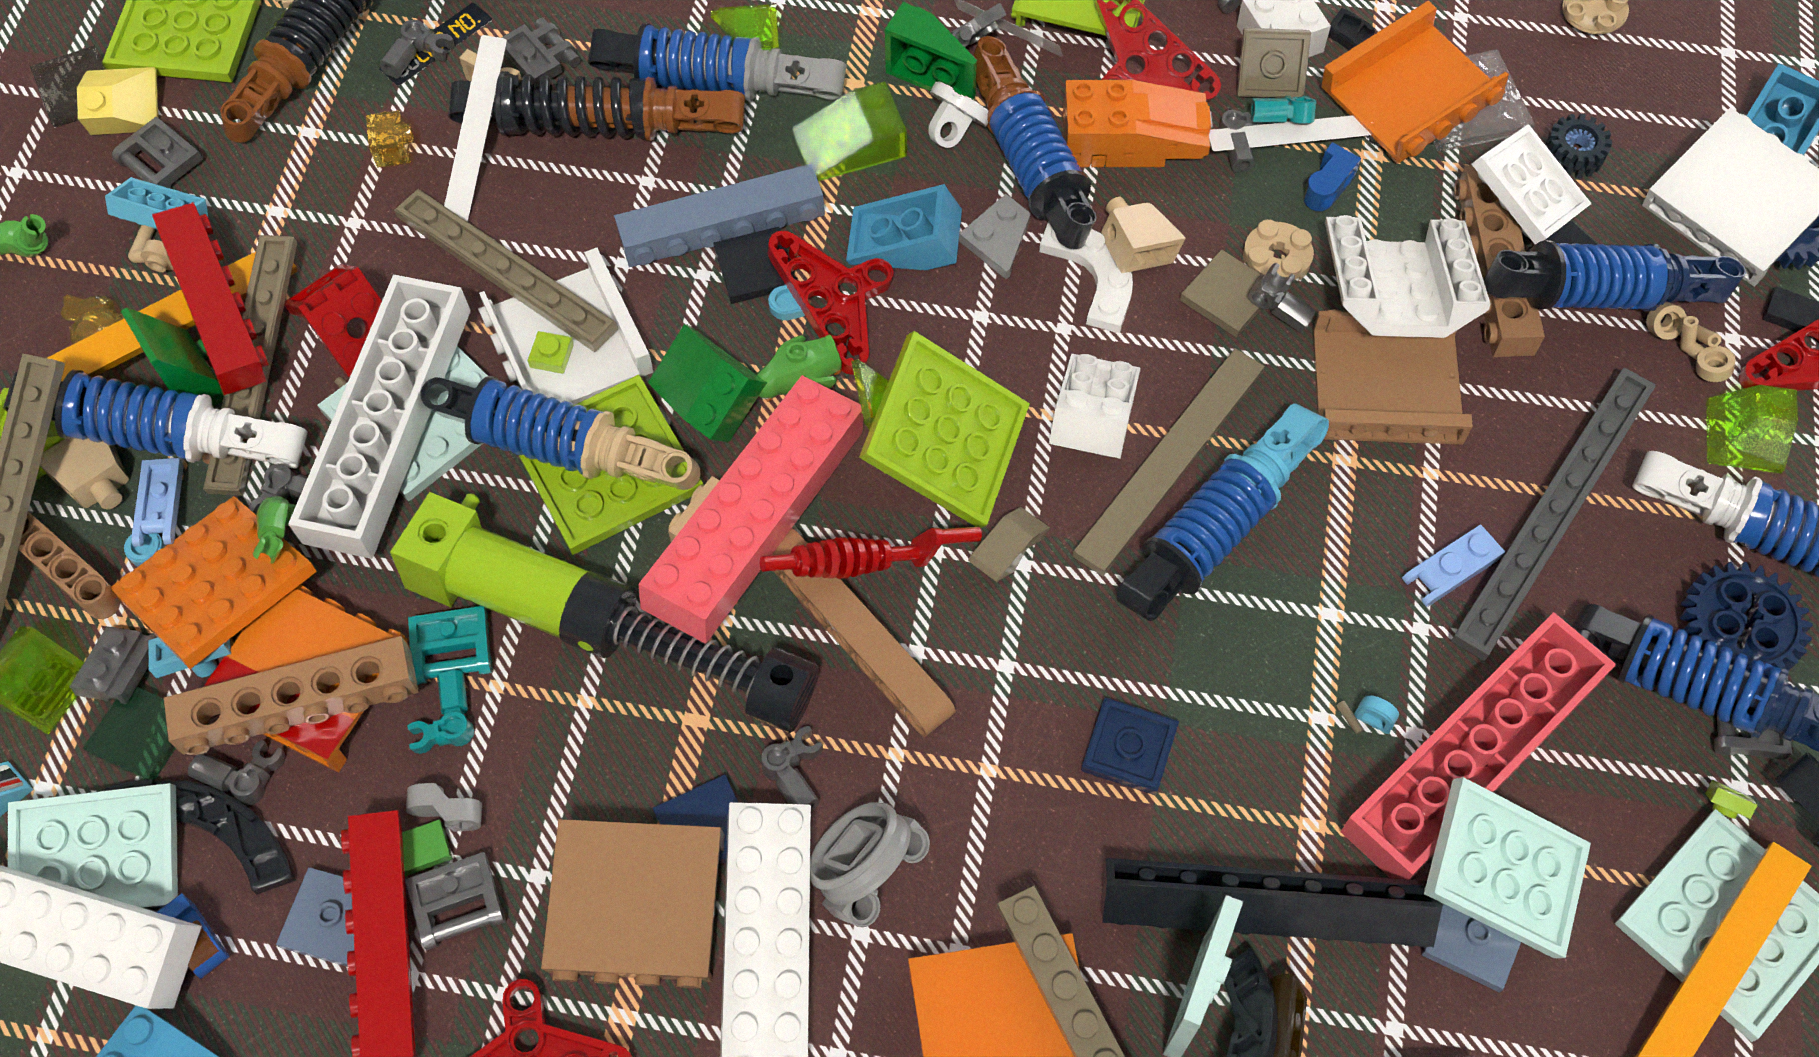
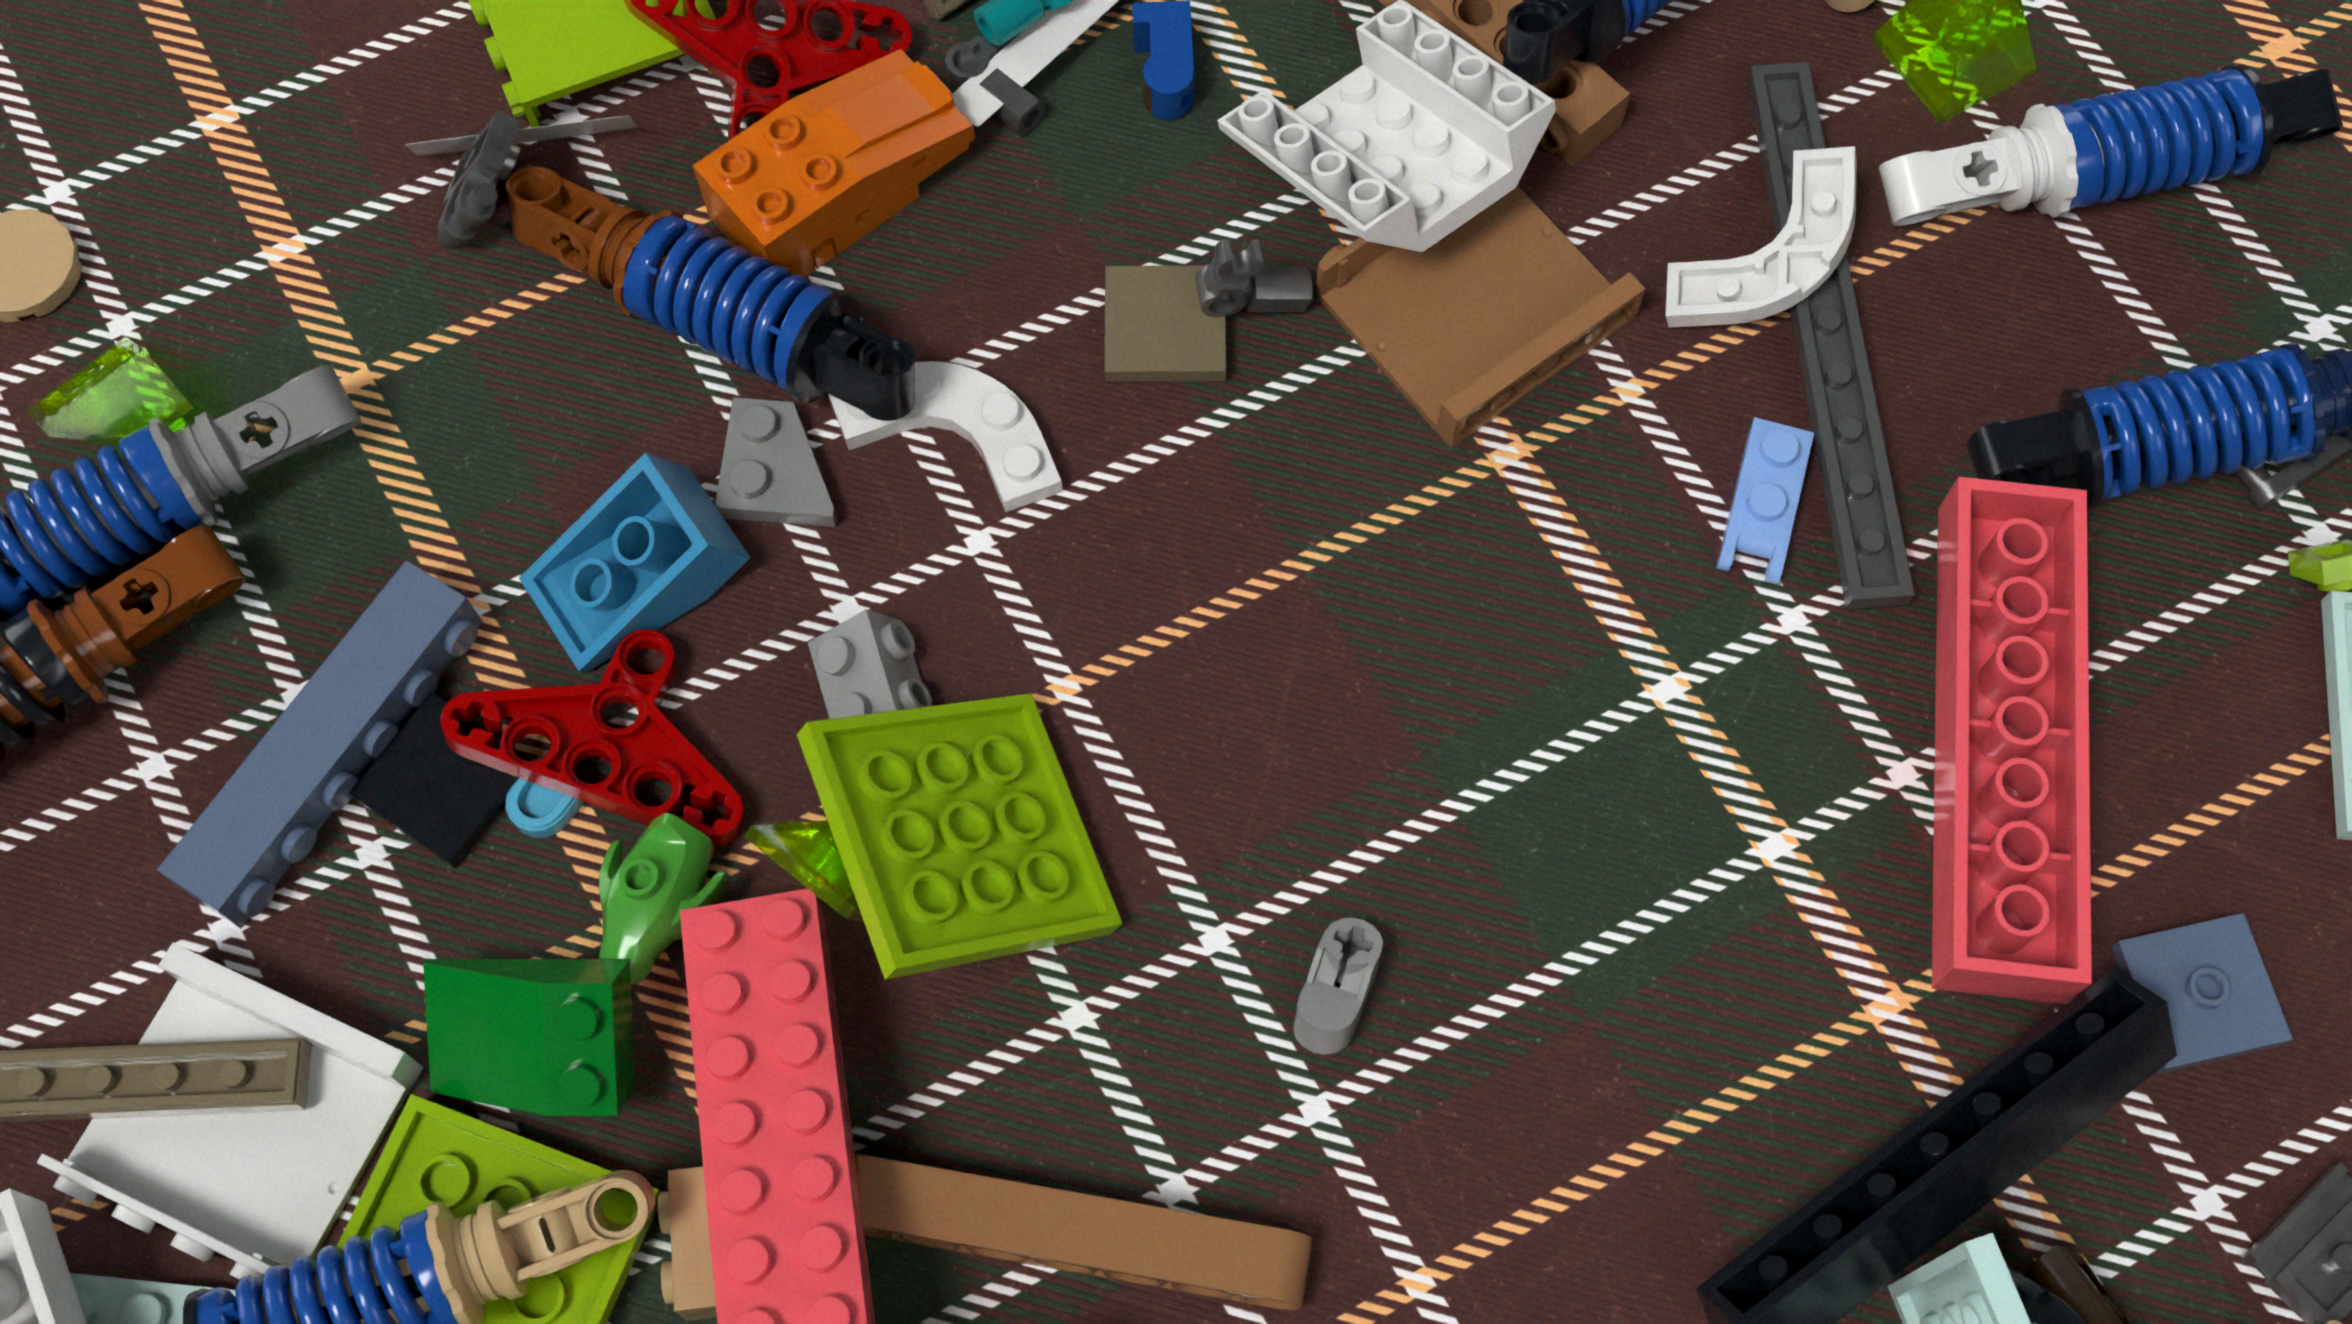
camera: 40 degrees left, 5 degrees up
(550, 352) = (234, 1164): lime plate -> none
(853, 133) = (423, 465): clear neon green slope -> none
(857, 556) = (990, 1128): red piece -> none
(926, 52) = (447, 262): green slope -> none
(956, 109) = (558, 322): white tile -> none
(971, 340) = (868, 667): none -> light grey bracket
(1007, 542) = (1177, 929): dark tan slope -> none
(1059, 619) = (1329, 1014): none -> light grey piece
(1094, 405) = (1125, 627): white slope -> none
(1130, 746) = (1576, 1091): dark blue tile -> none
(1140, 236) = (980, 328): tan torso -> none
(1168, 462) = (1288, 638): dark tan tile -> none
(1220, 514) = (1430, 665): piece -> none
(1283, 237) = (1176, 186): tan plate -> none
(1350, 717) = (1812, 816): dark tan piece -> none
(1377, 713) = (1845, 786): medium azure tile -> none
(1508, 868) = (2182, 876): light aqua plate -> none
(1560, 466) = (1786, 268): none -> white plate
(1711, 608) = (2158, 302): dark blue gear -> none

